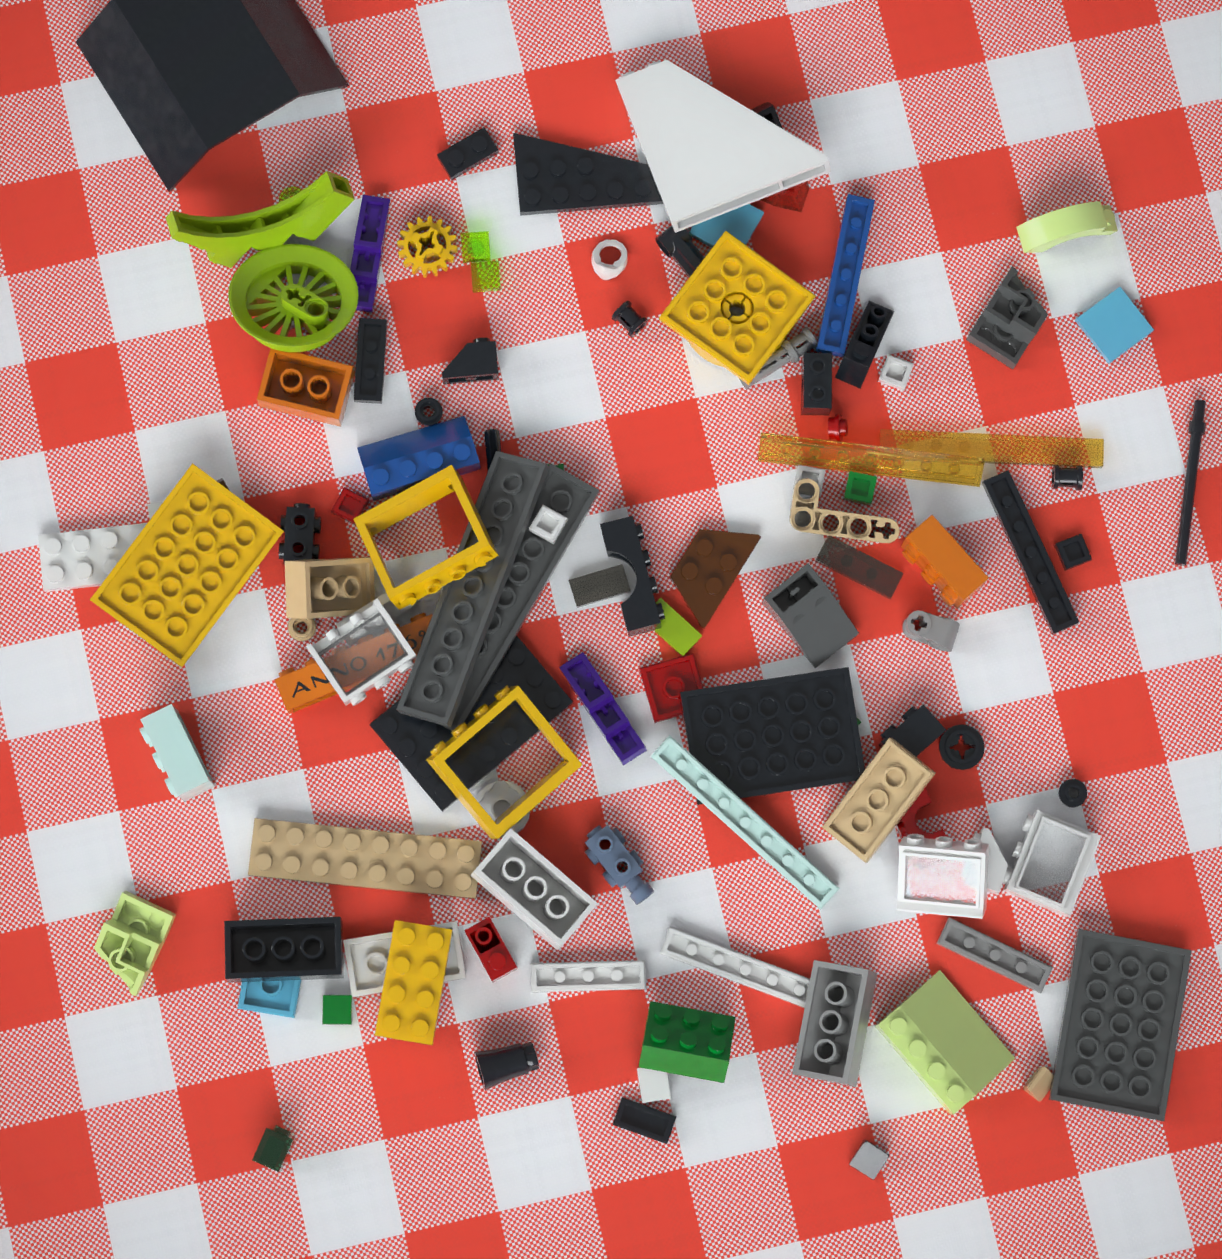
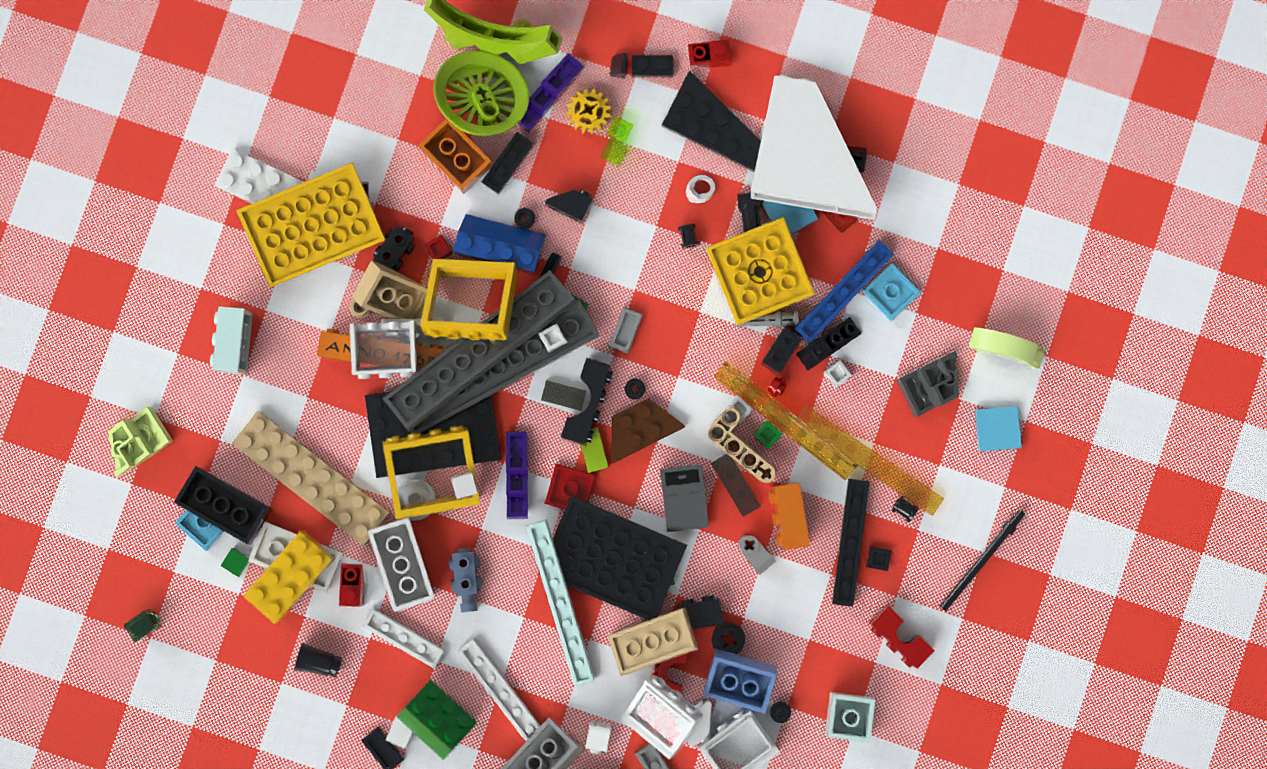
camera: 35 degrees right, 5 degrees up
(429, 175) = (619, 65): none -> slope
(527, 99) = (710, 54): none -> red slope
(551, 751) = (464, 485): none -> white tile
(624, 469) = (625, 330): none -> light grey tile
(676, 520) = (630, 394): none -> black plate
(884, 948) = (598, 737): none -> white slope
(898, 244) = (891, 291): none -> medium azure tile
(1005, 782) = (740, 680): none -> medium blue brick
(1130, 622) = (914, 651): none -> red arch
(1154, 747) = (850, 717): none -> light aqua brick

